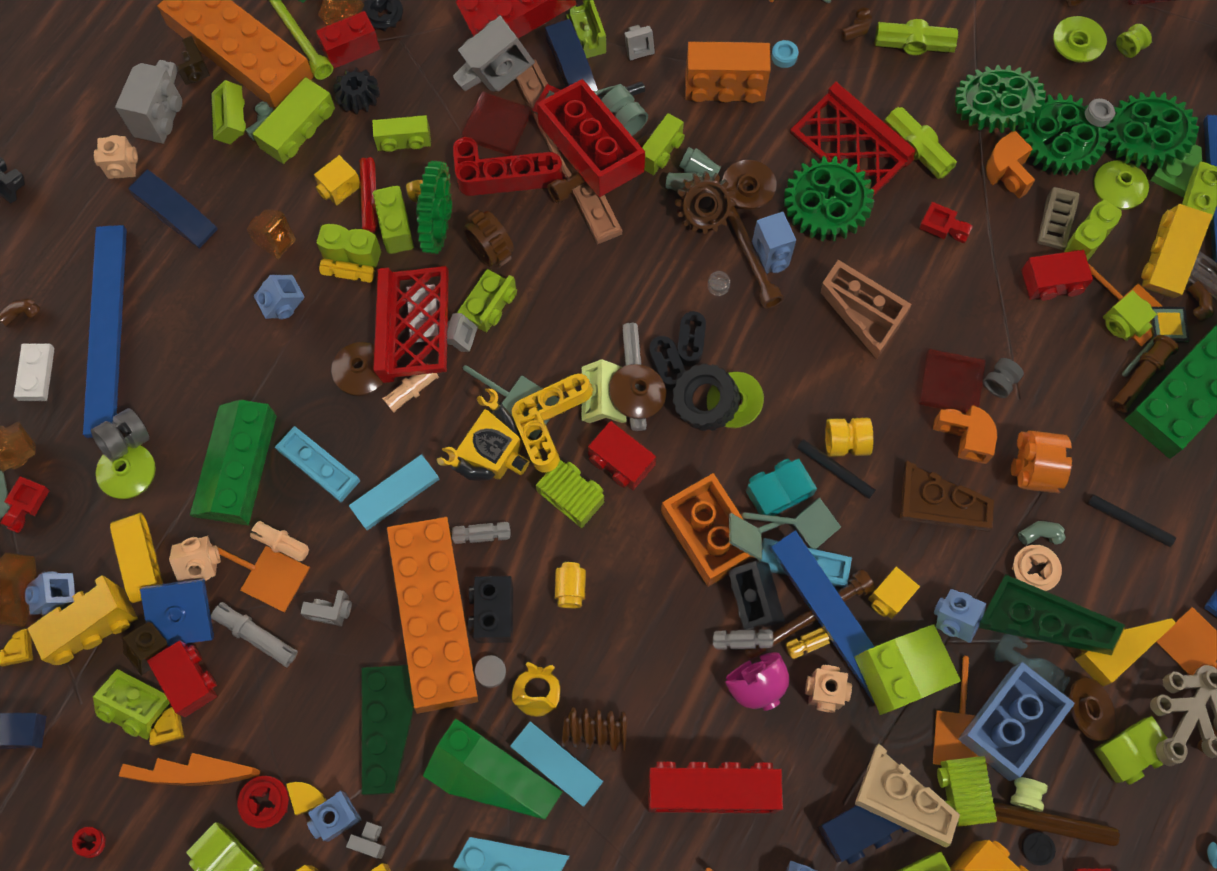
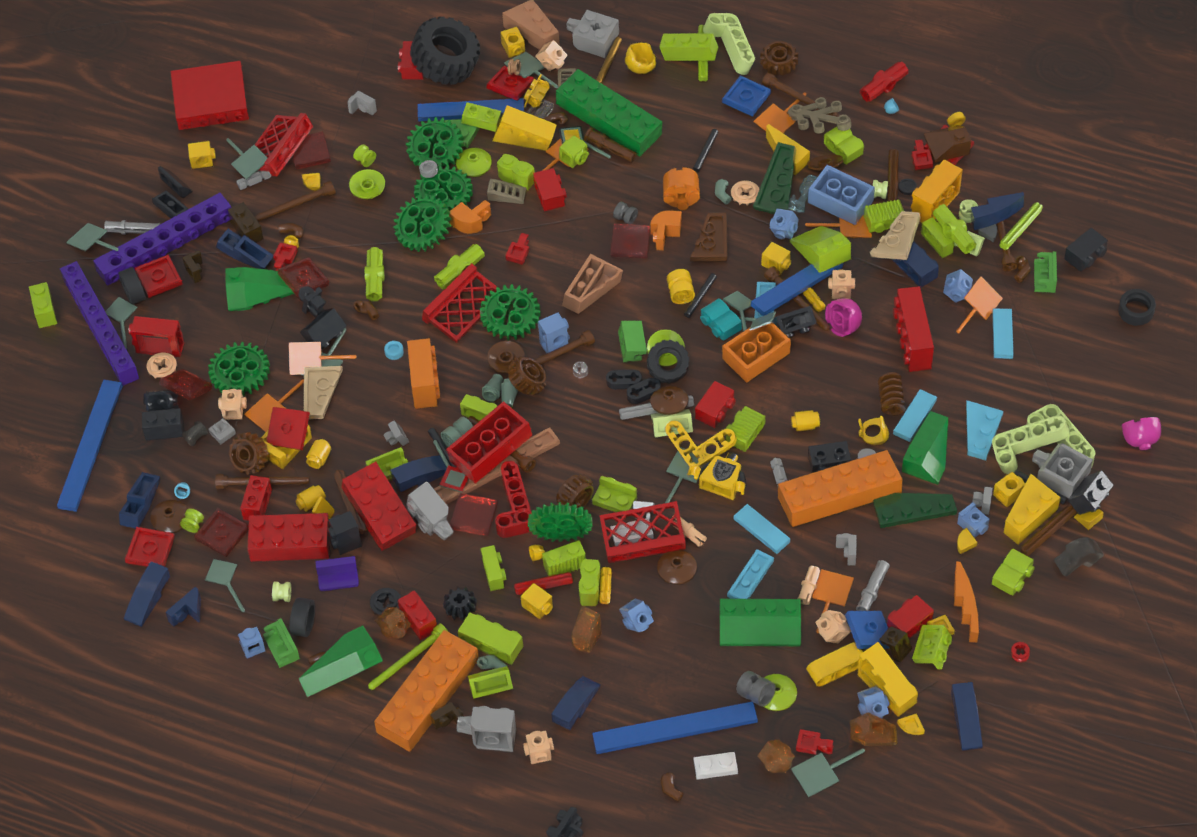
camera: 95 degrees left, 15 degrees down
(249, 808) = (982, 560): red gear -> none
(743, 639) = (820, 329): light grey axle -> none
(757, 355) = (632, 340): none -> bright green hinge

